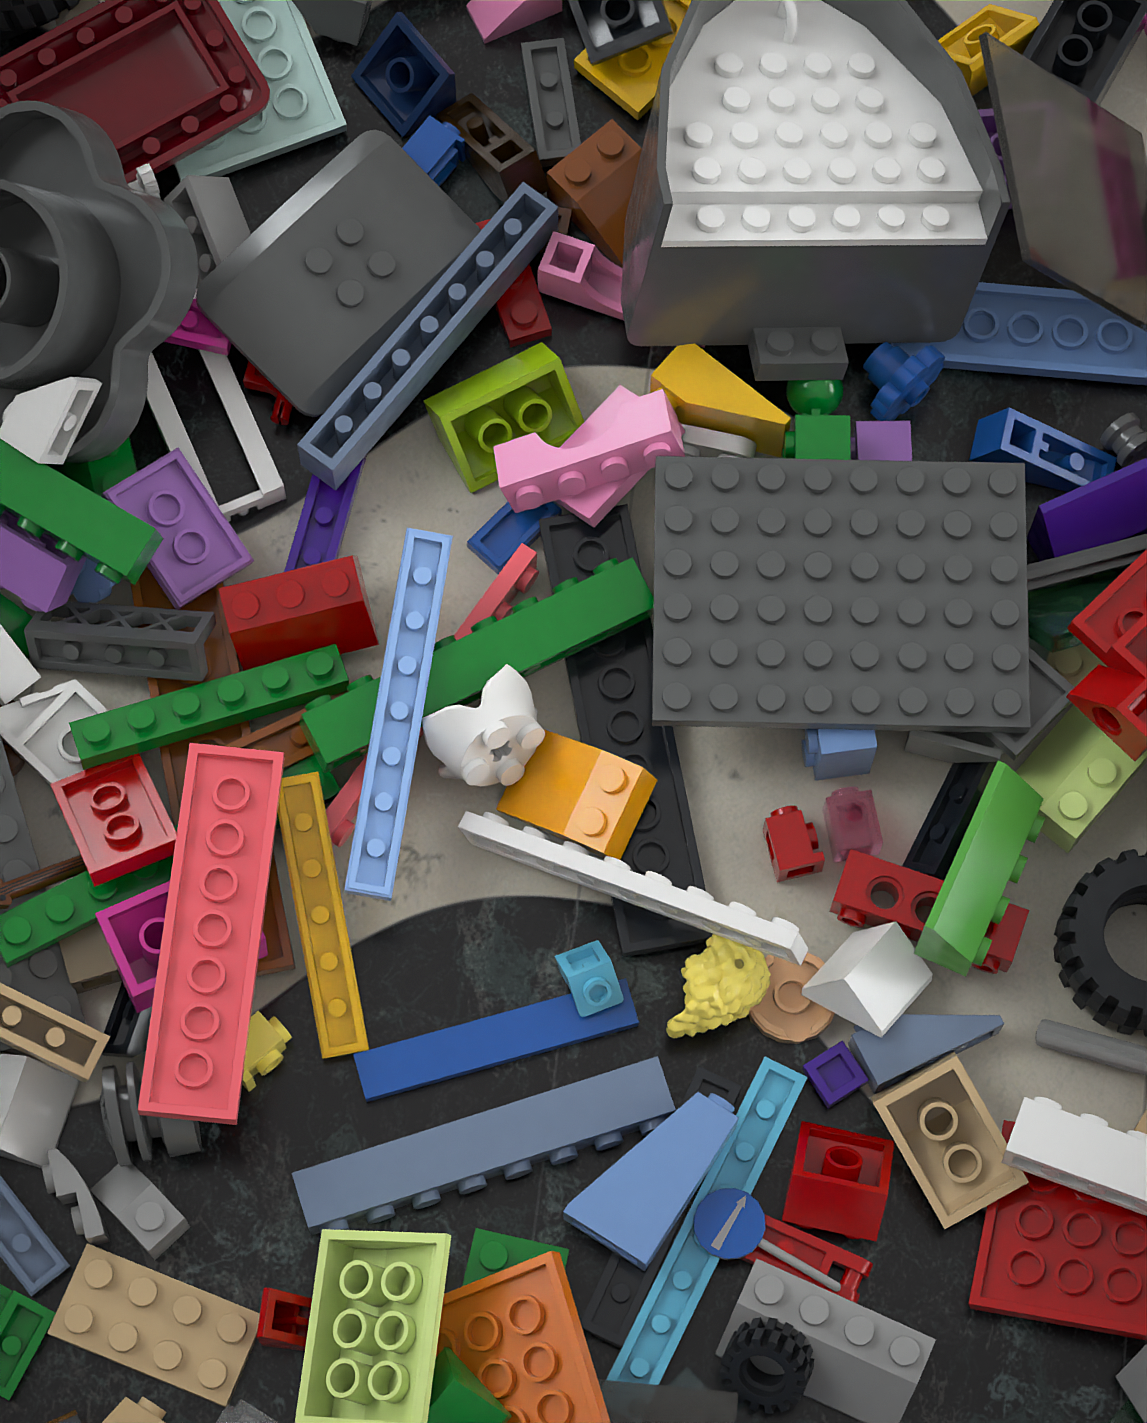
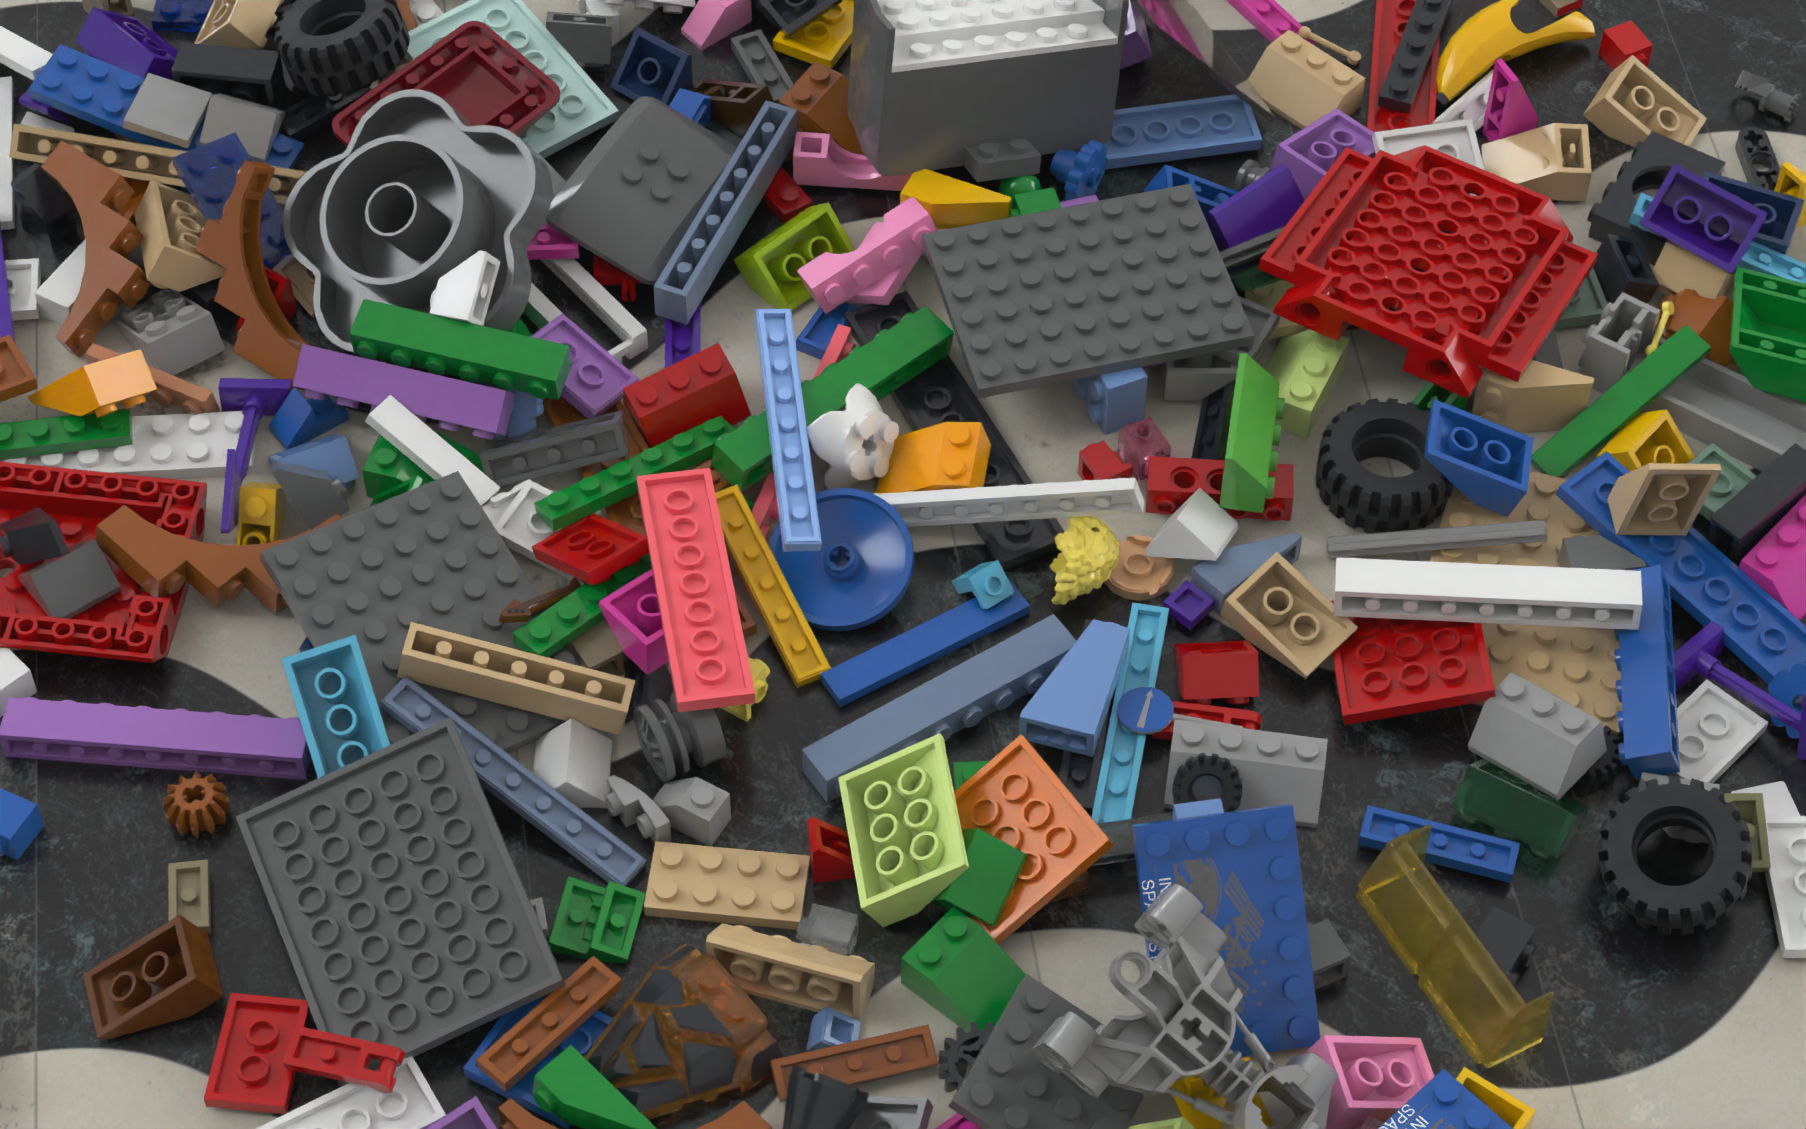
camera: 15 degrees left, 20 degrees down
(445, 910) = (860, 565): none -> blue dish

